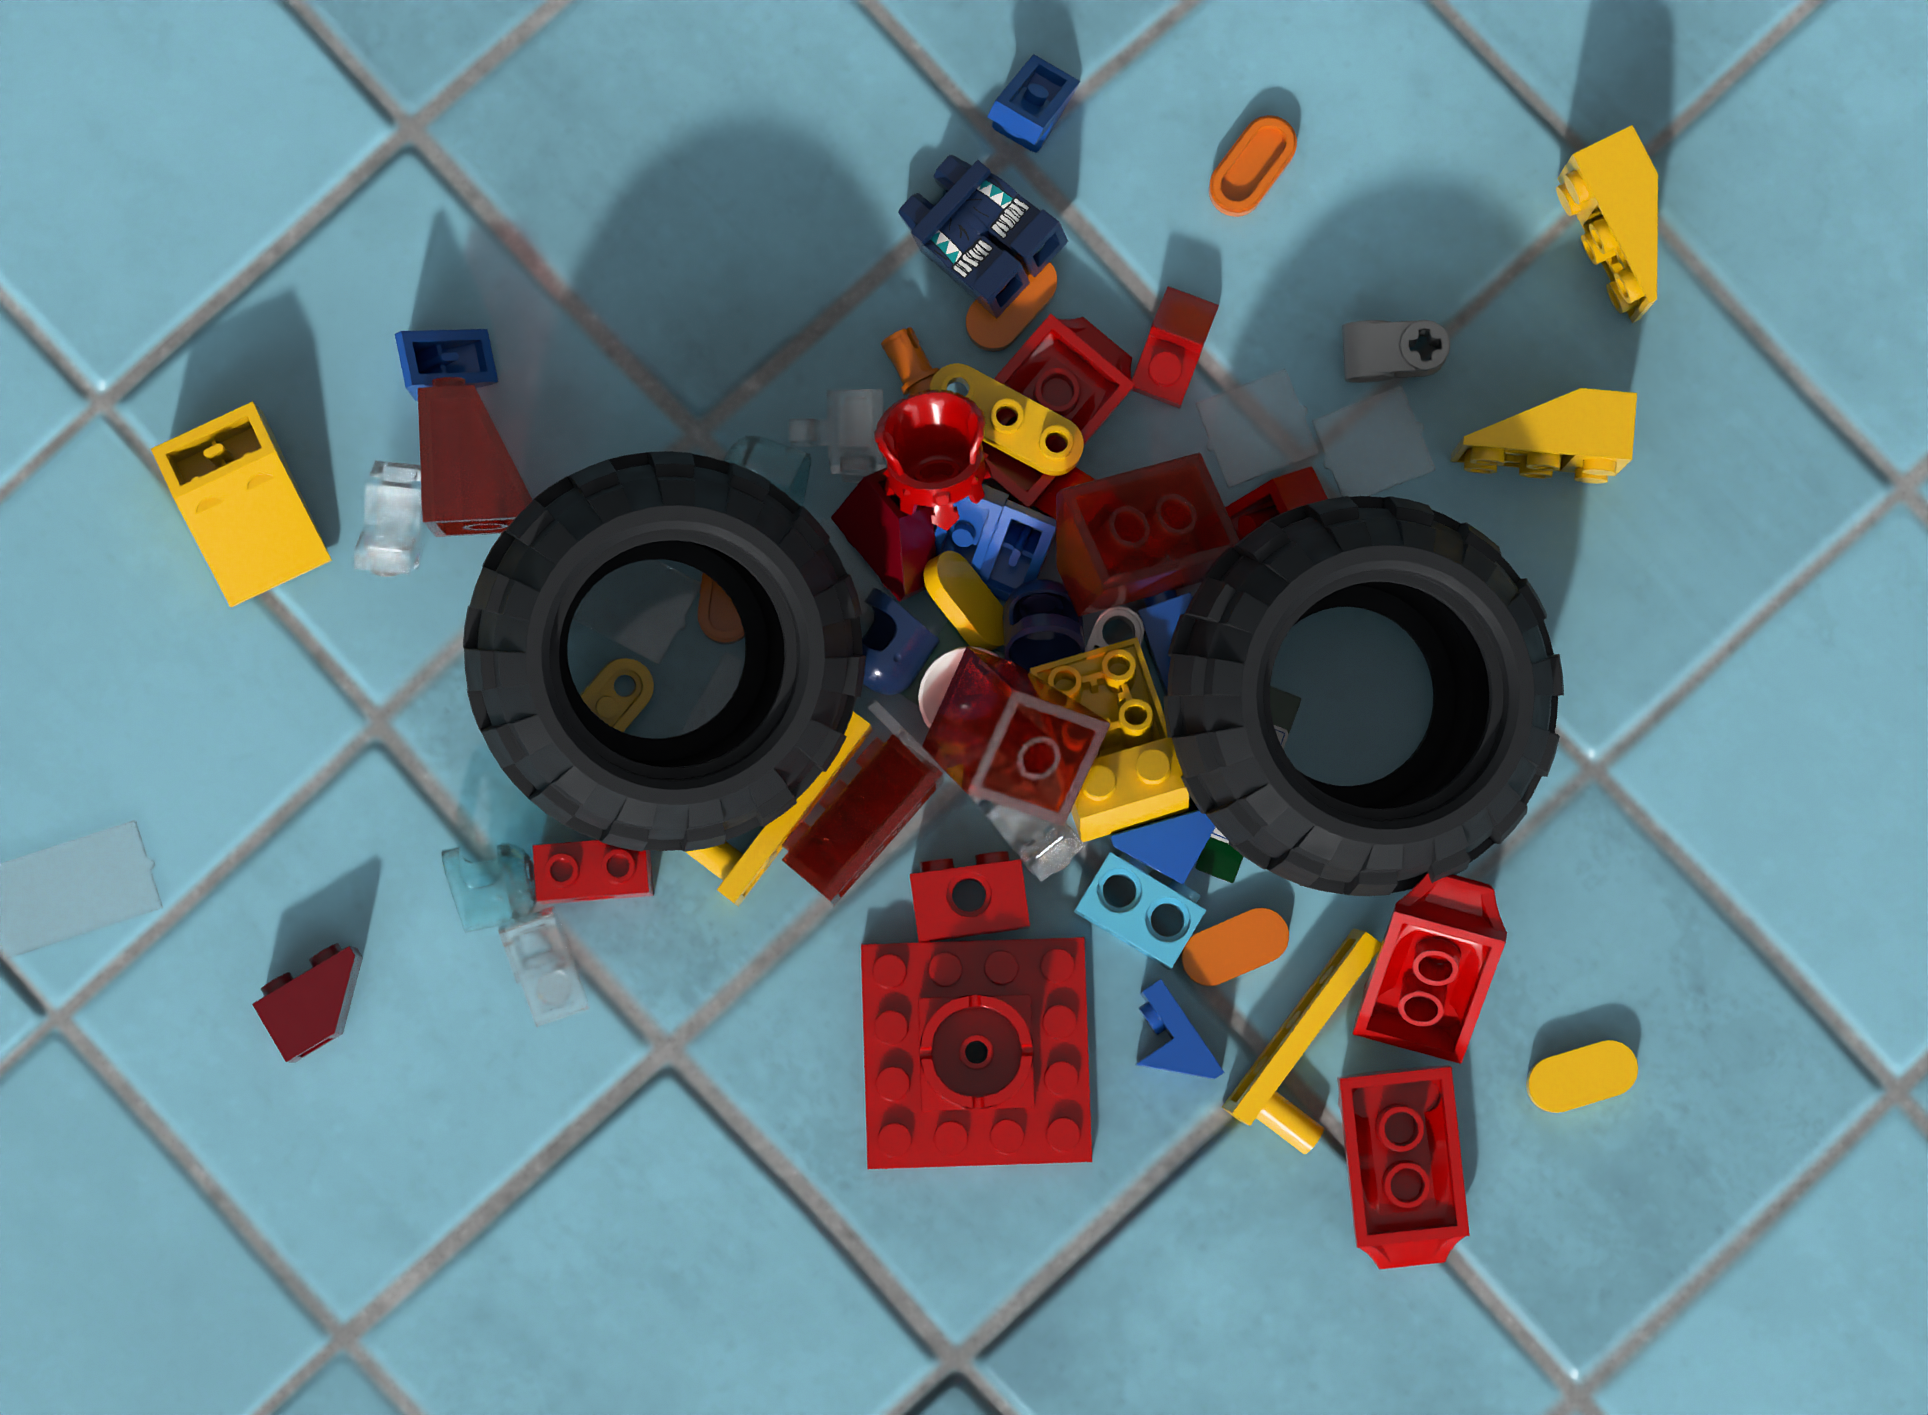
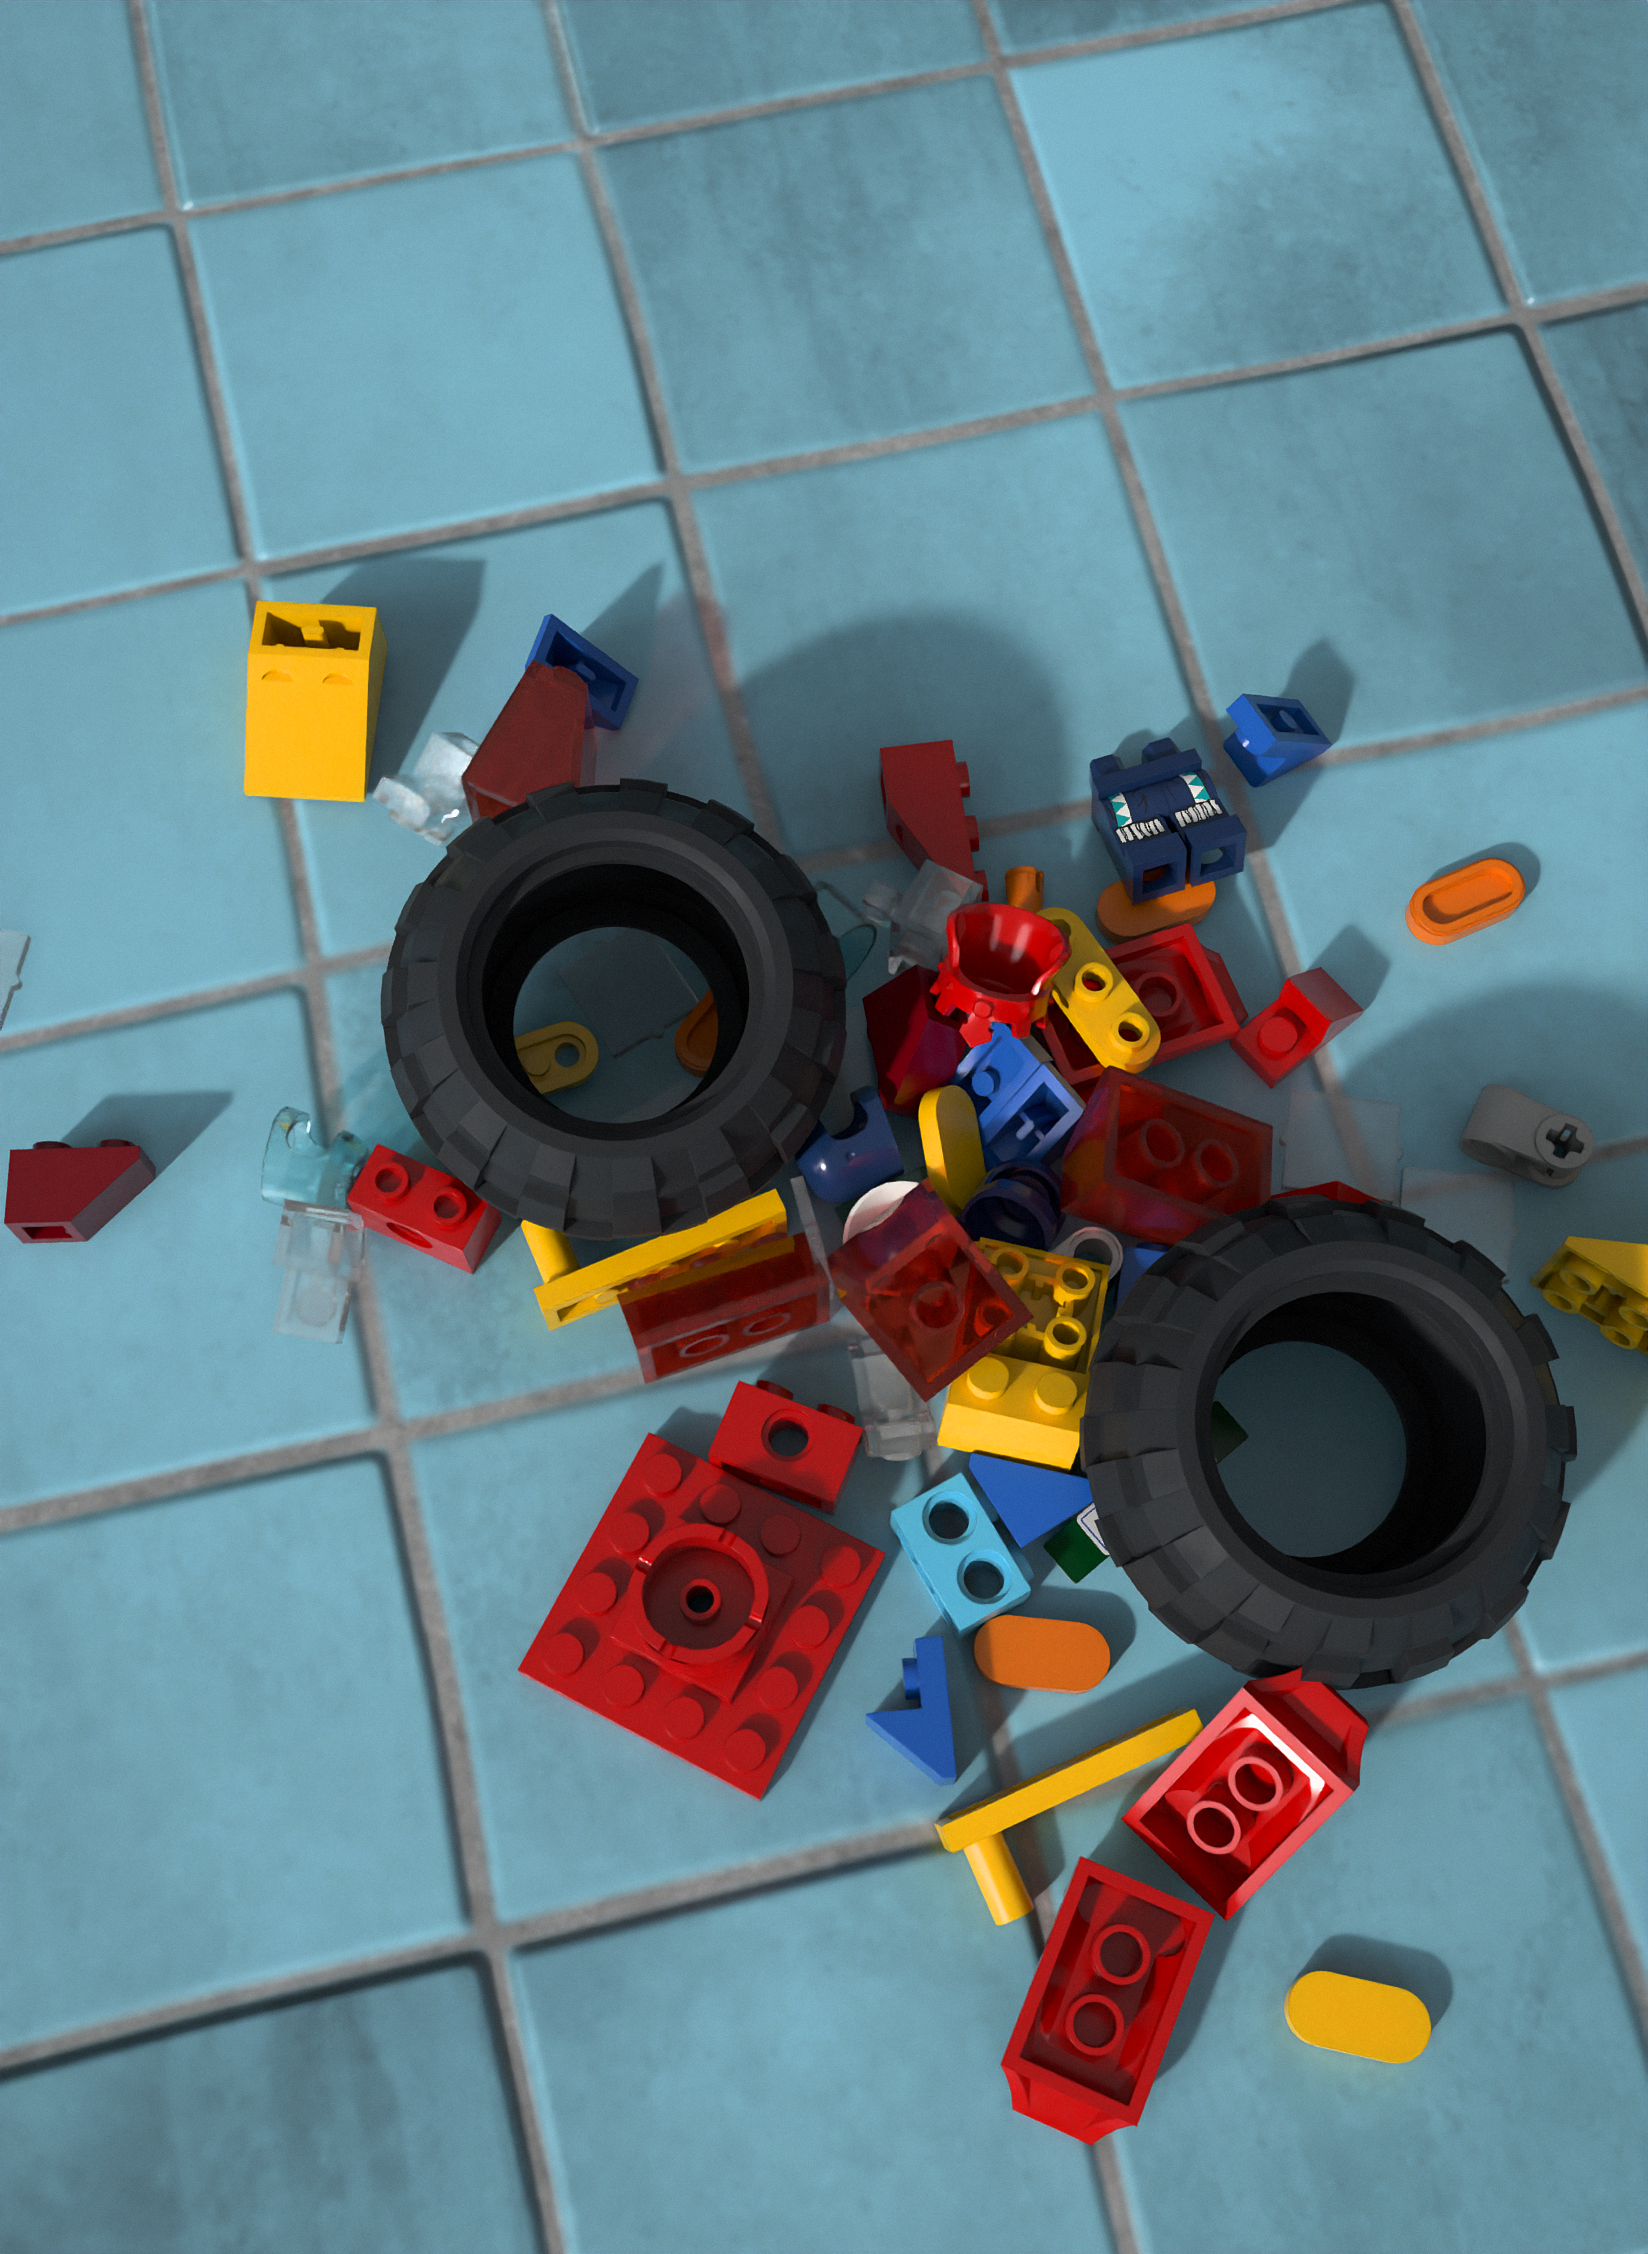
camera: 30 degrees right, 15 degrees down
(792, 328) = (925, 807): none -> red slope

